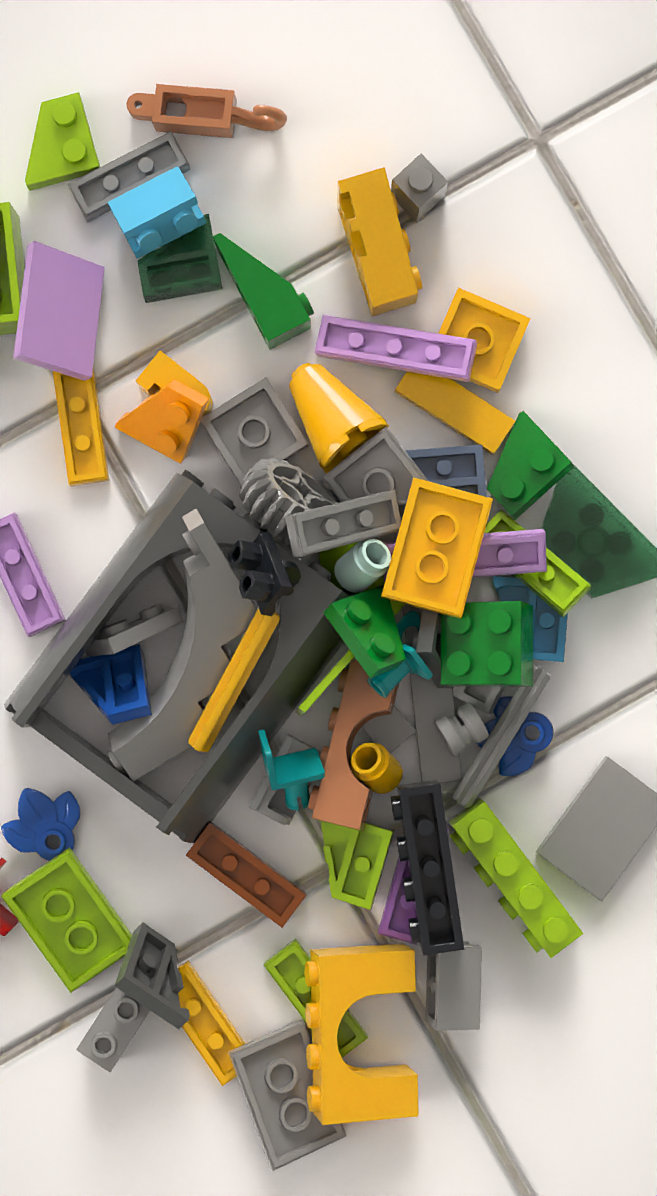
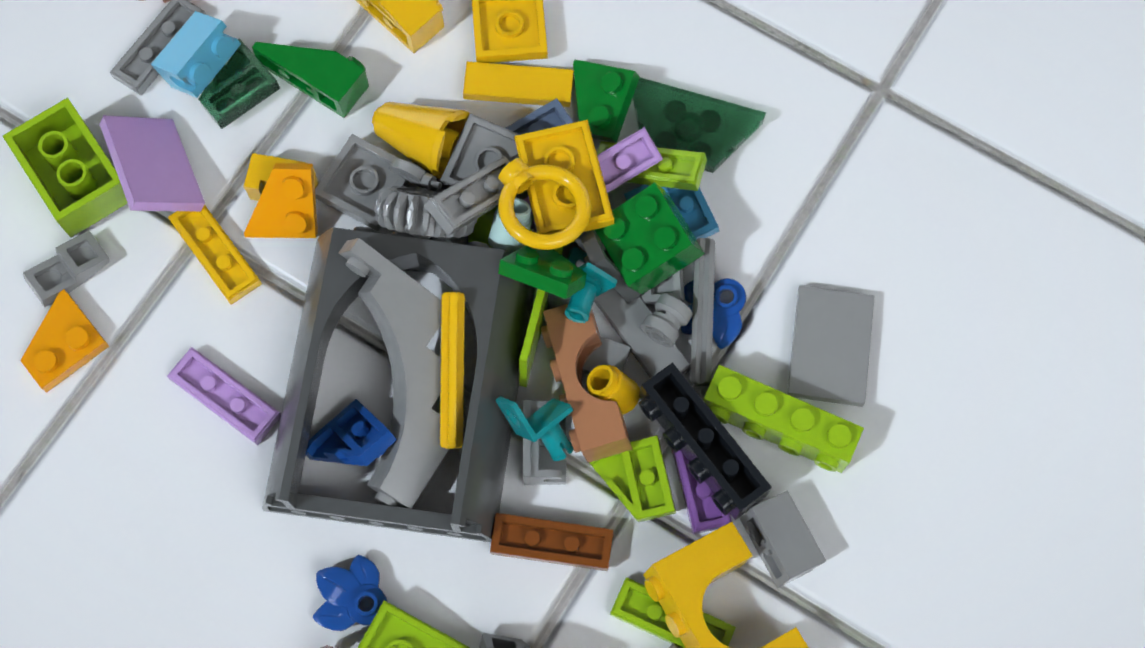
camera: 25 degrees left, 15 degrees down
(61, 143) = (89, 46): lime wing -> none
(125, 634) = (339, 390): light grey wing -> none
(265, 573) = (430, 259): black hips -> none
(309, 468) = (415, 174): none -> light grey piece
(391, 529) = (518, 178): none -> yellow piece
(396, 348) = (446, 61): lavender tile -> none

